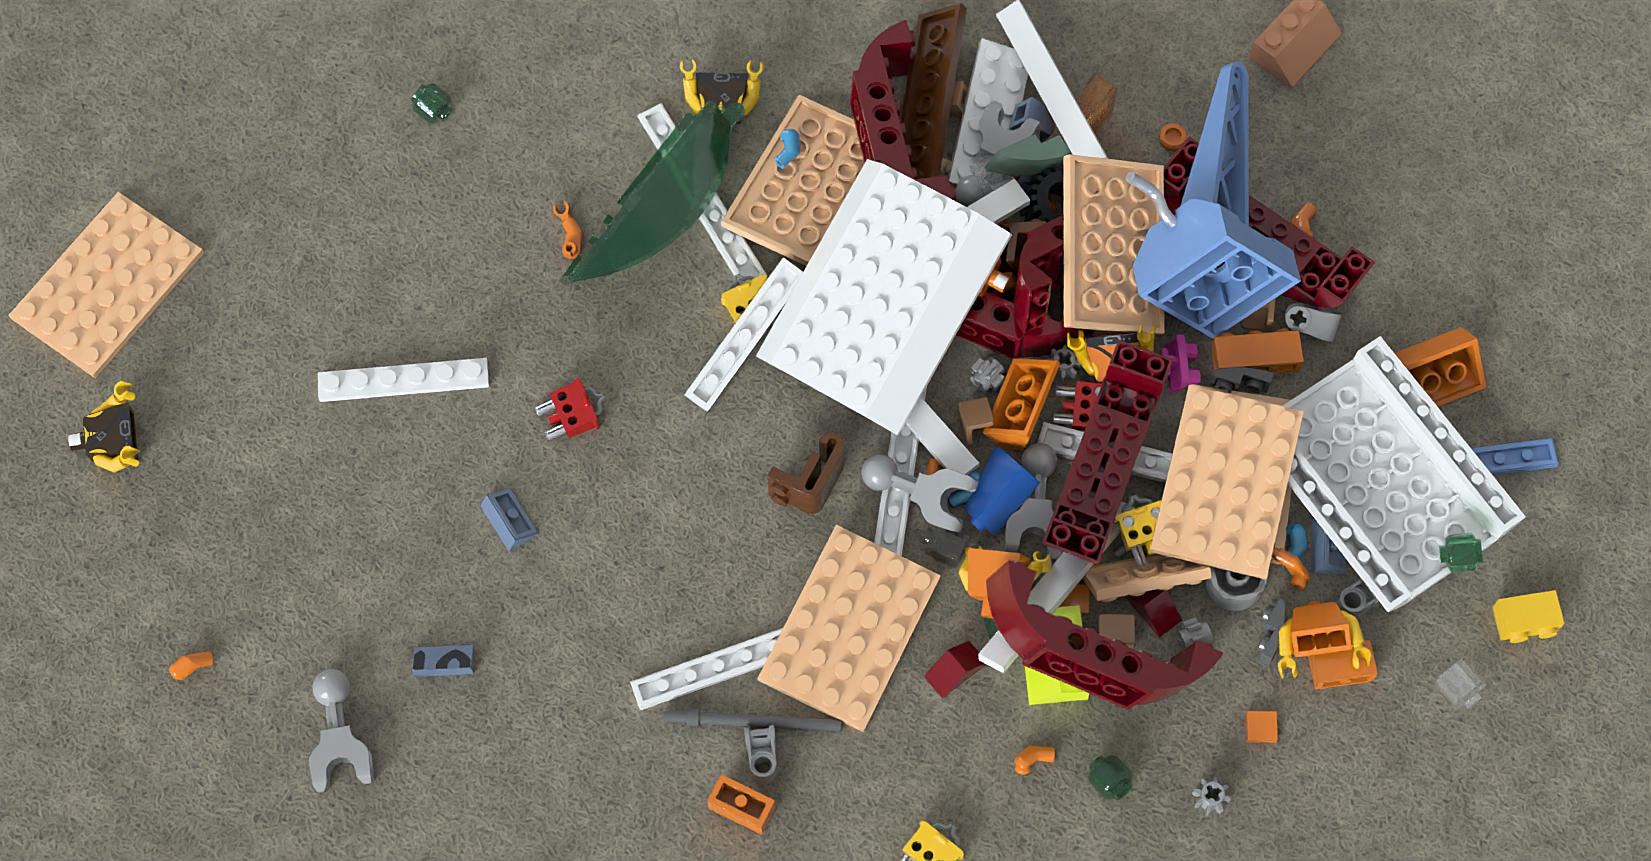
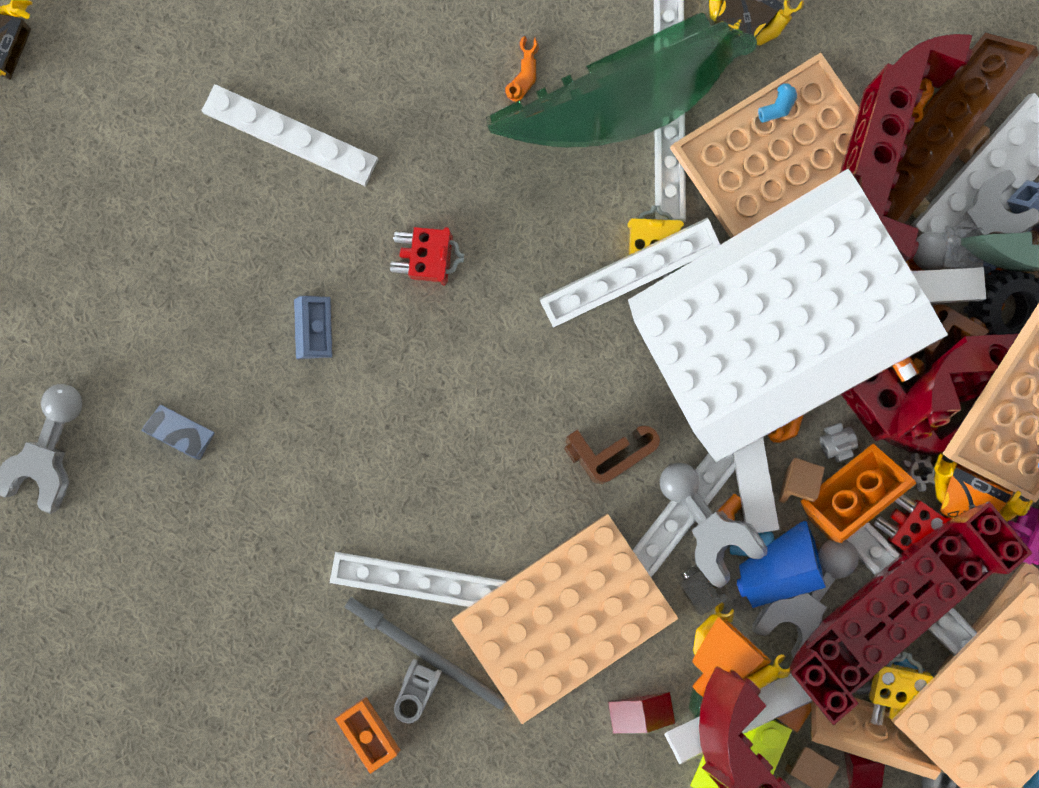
camera: 30 degrees right, 15 degrees up
(899, 85) = (928, 91): none -> orange arm
(942, 388) = (787, 431): none -> orange arm

